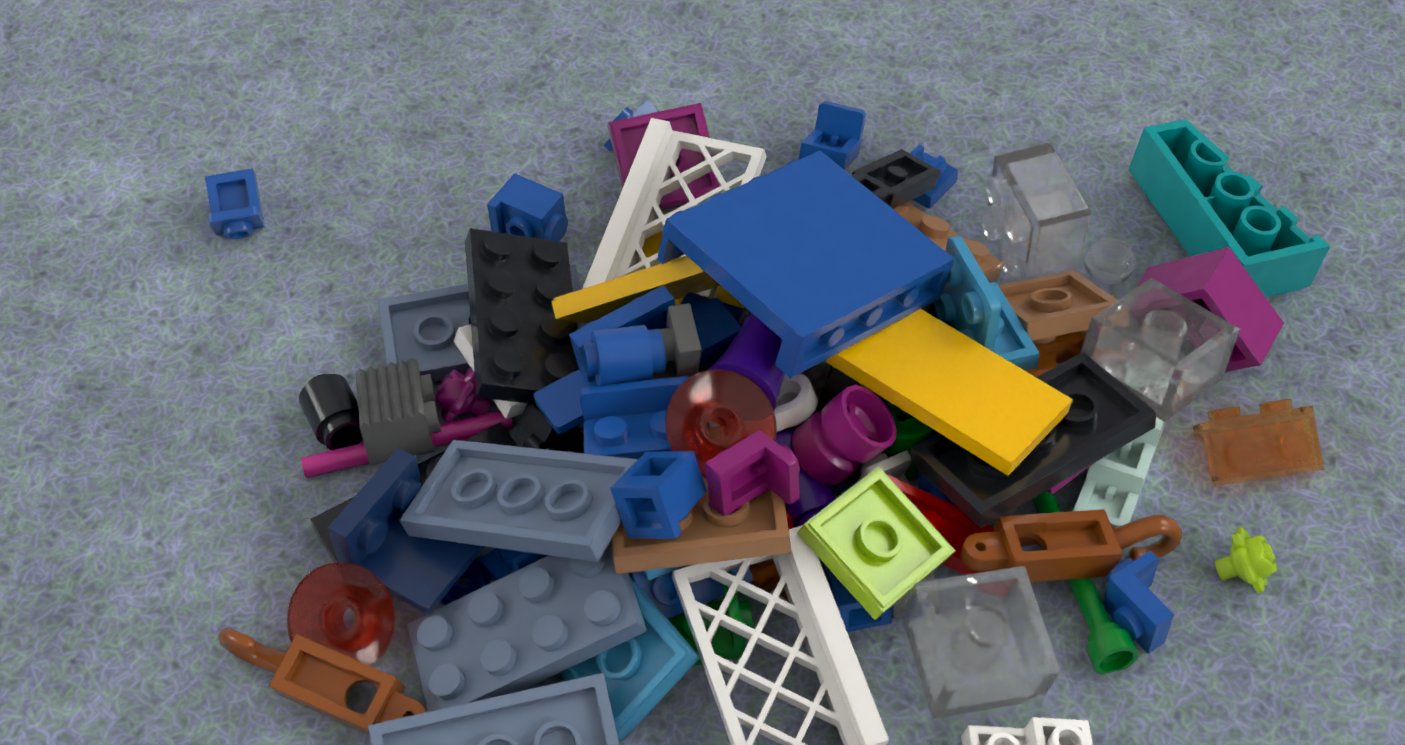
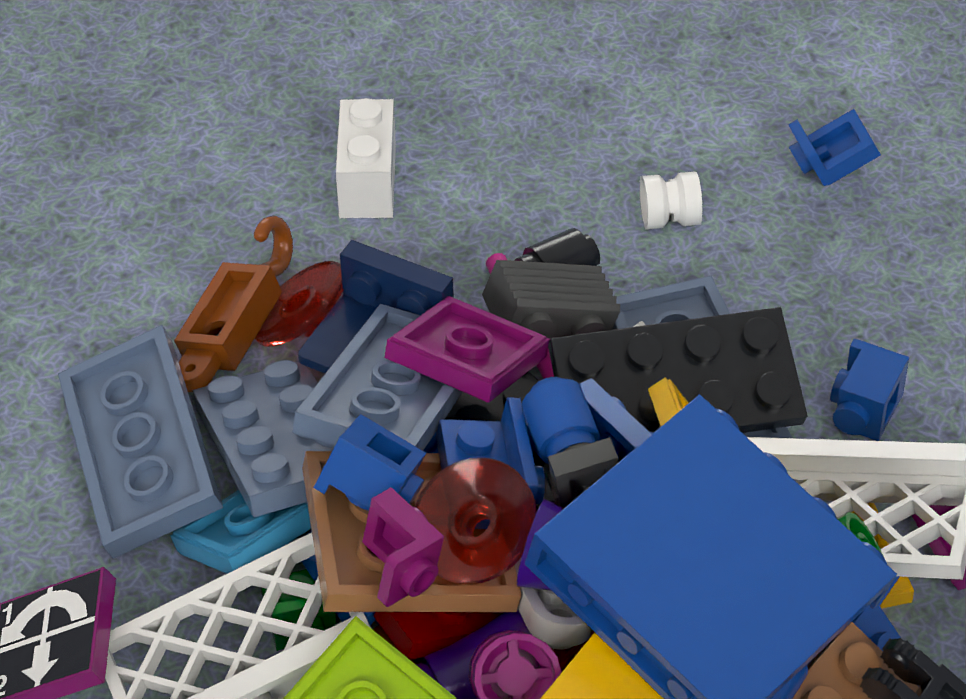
camera: 85 degrees right, 5 degrees down
(146, 557) = (366, 158): none -> white brick
(270, 323) = (672, 200): none -> white wheel
(488, 442) = (467, 348): none -> magenta tile

